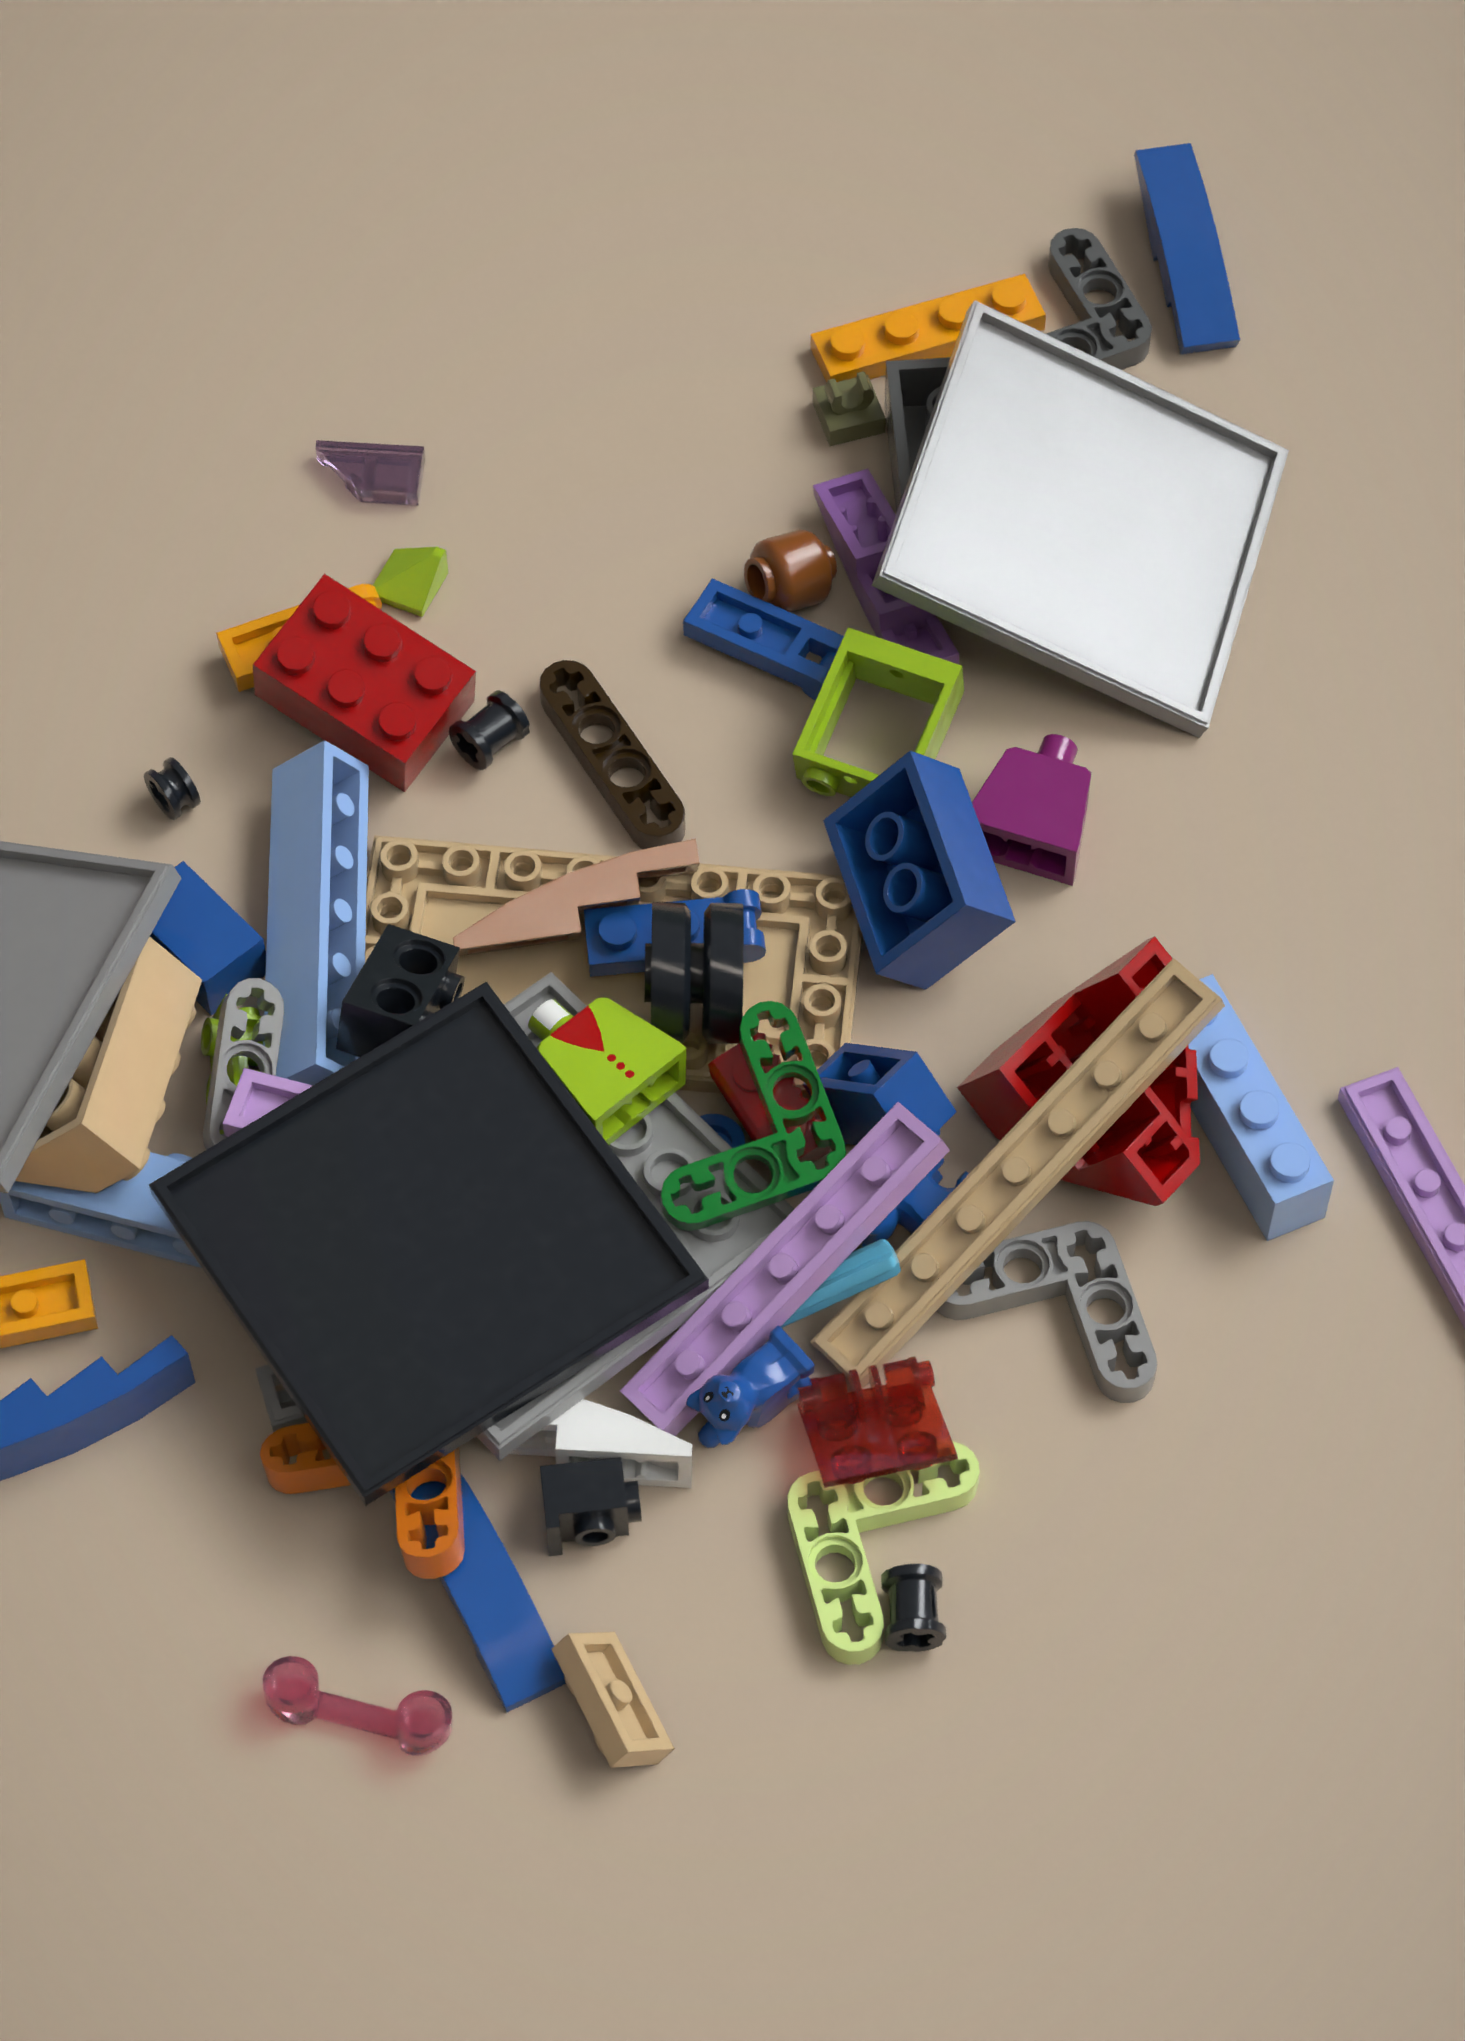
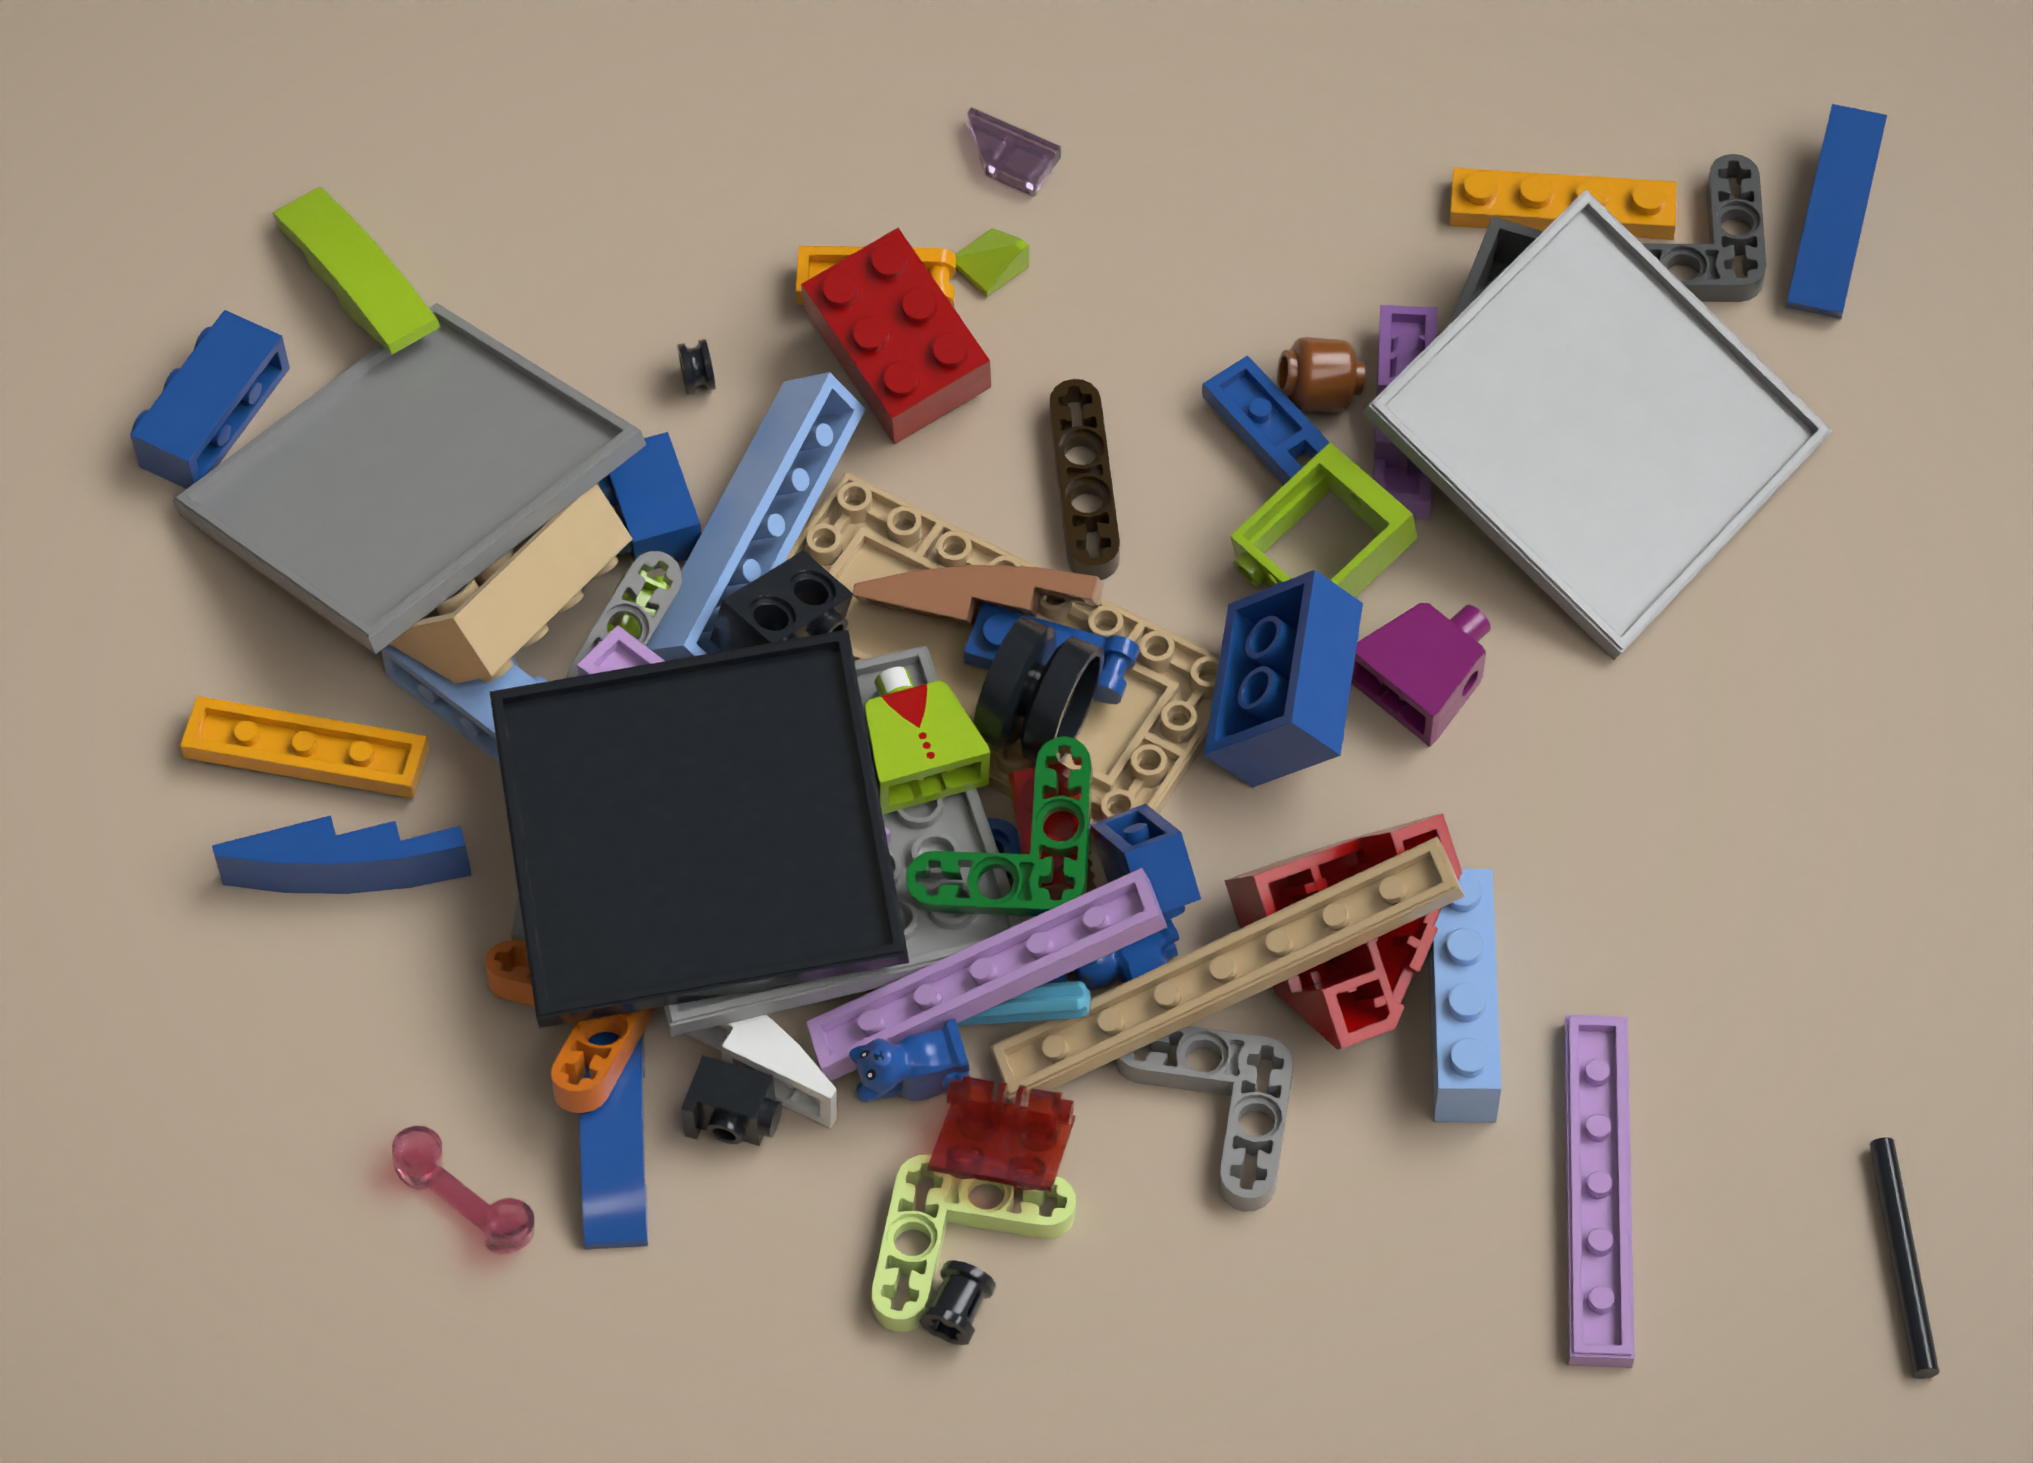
camera: 25 degrees right, 0 degrees up
(489, 730) = (988, 417): black bush -> none
(612, 1699) = (670, 1272): tan plate -> none
(848, 409) = (1451, 247): olive tile -> none

